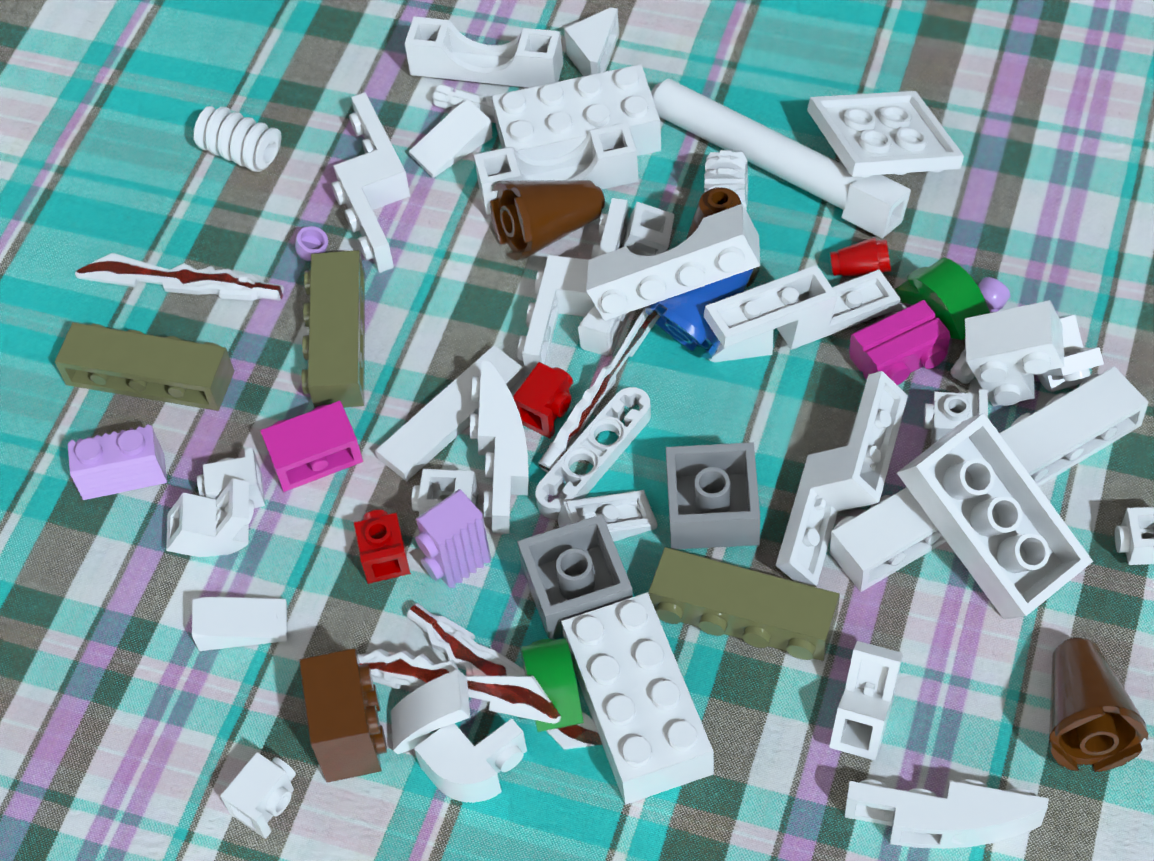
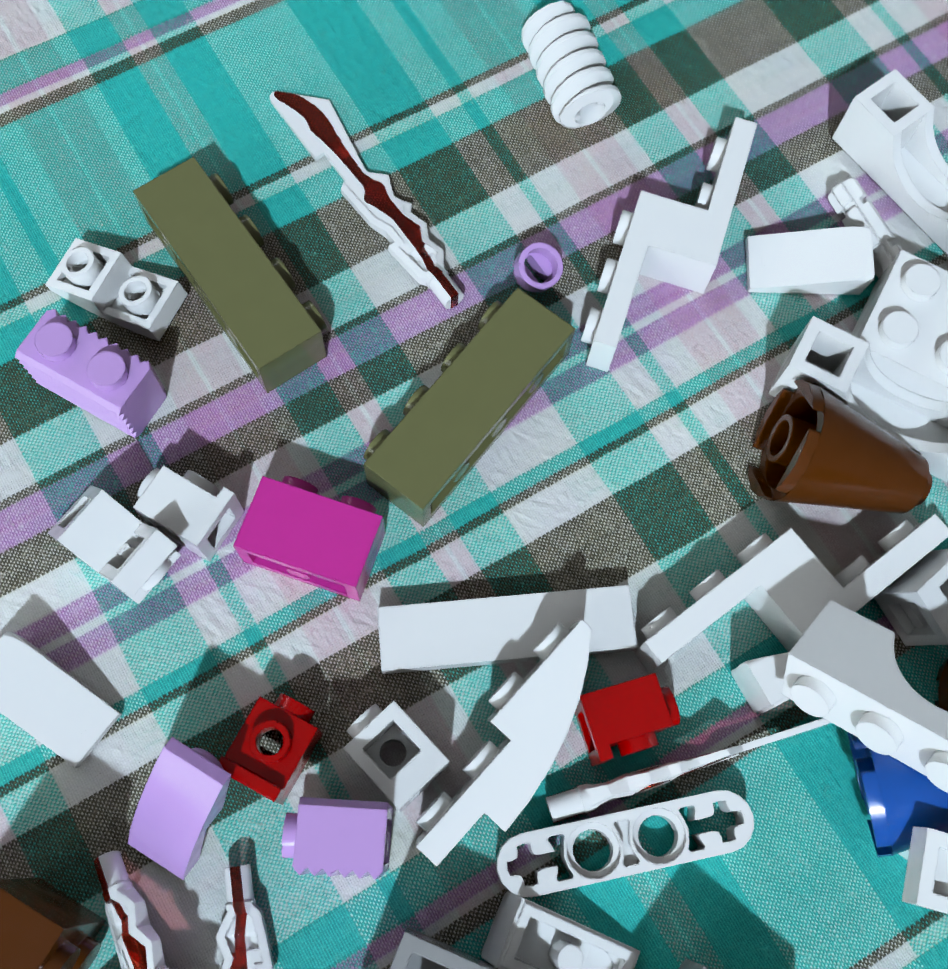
camera: 30 degrees right, 15 degrees up
(73, 421) = (116, 290): none -> white slope
(360, 595) = (178, 806): none -> lavender slope

